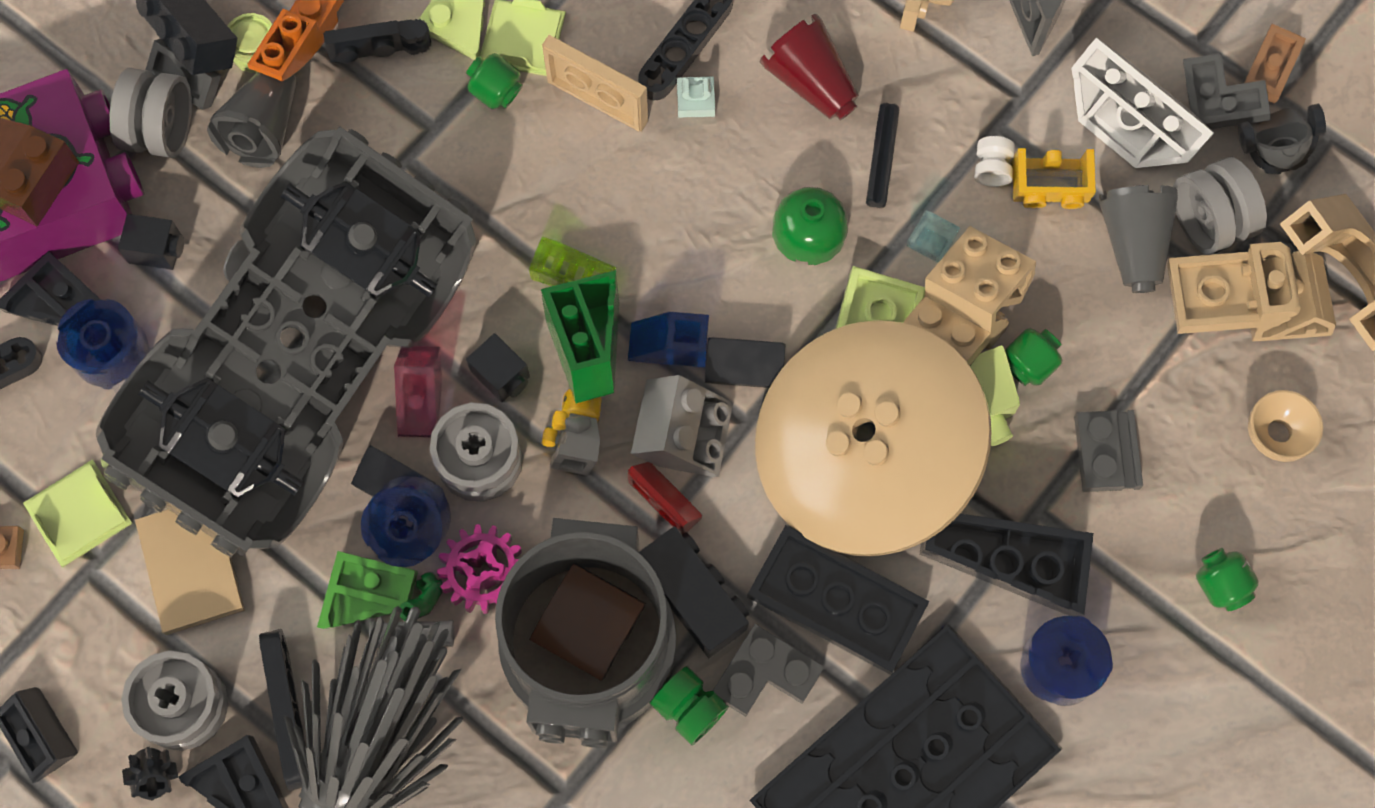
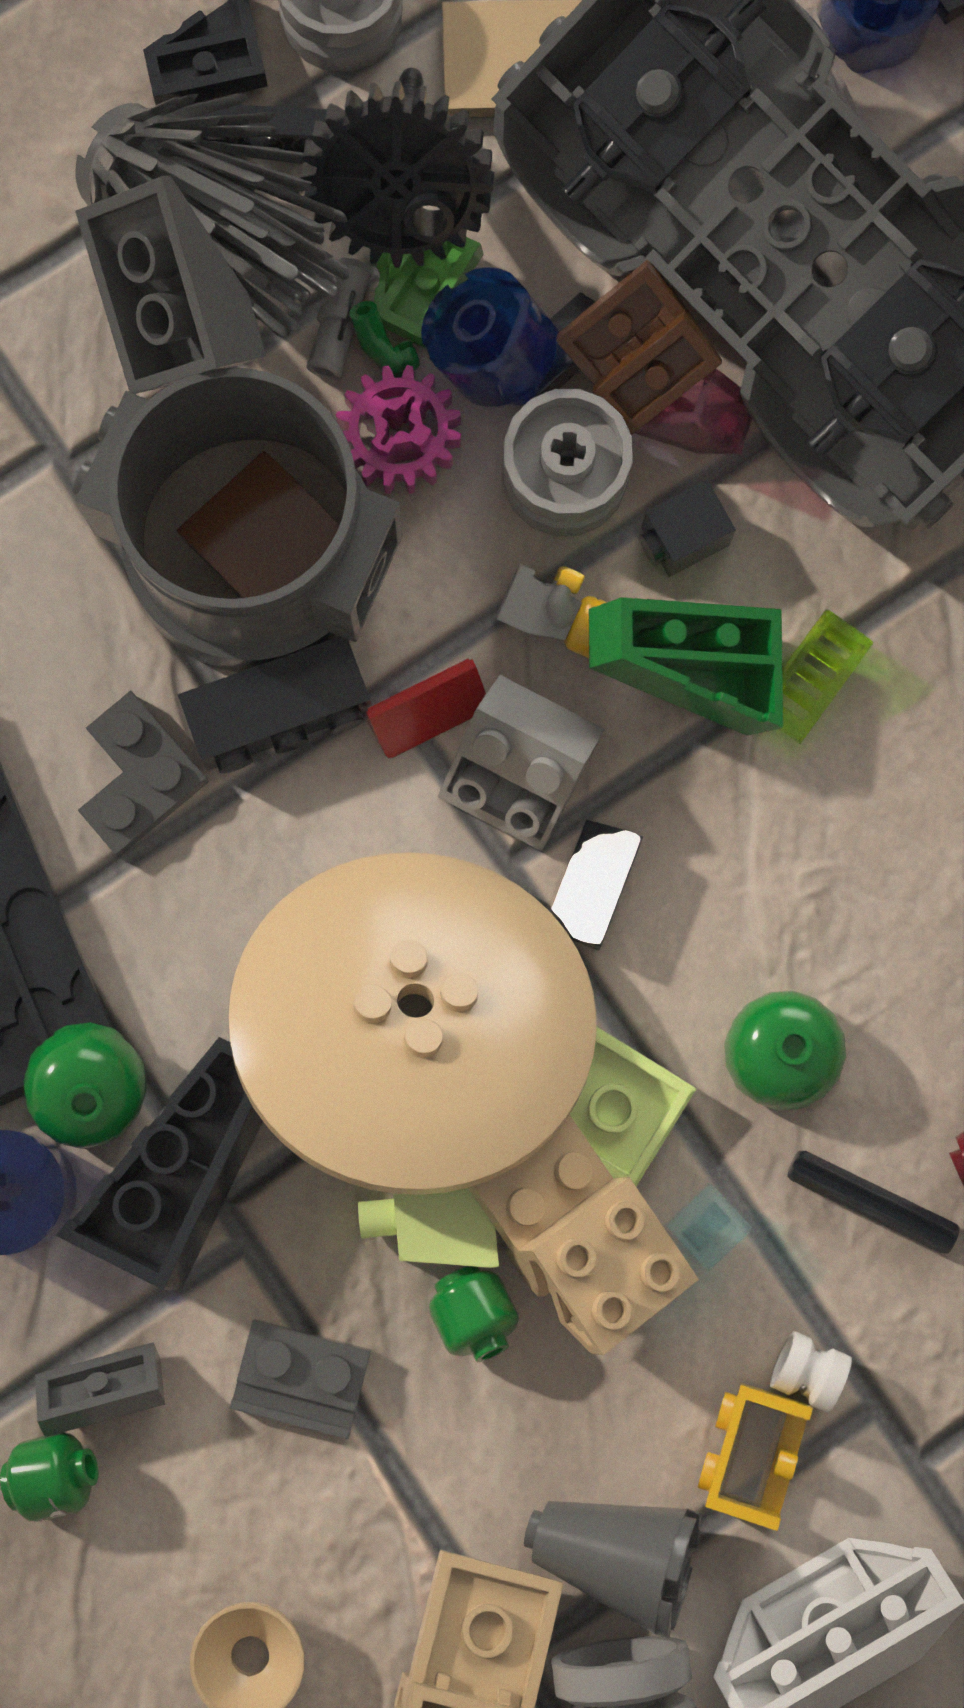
camera: 105 degrees right, 10 degrees up
(308, 603) = (389, 161): none -> black gear
(389, 420) = (639, 346): none -> reddish brown slope
(454, 706) = (166, 287): none -> dark grey slope
(670, 339) = (657, 781): clear blue slope -> none
(689, 705) = (117, 651): green wheel -> none
(838, 600) = (201, 904): black plate -> none
(982, 633) = (85, 1085): none -> green cylinder
(1163, 566) = (99, 1389): none -> dark grey plate

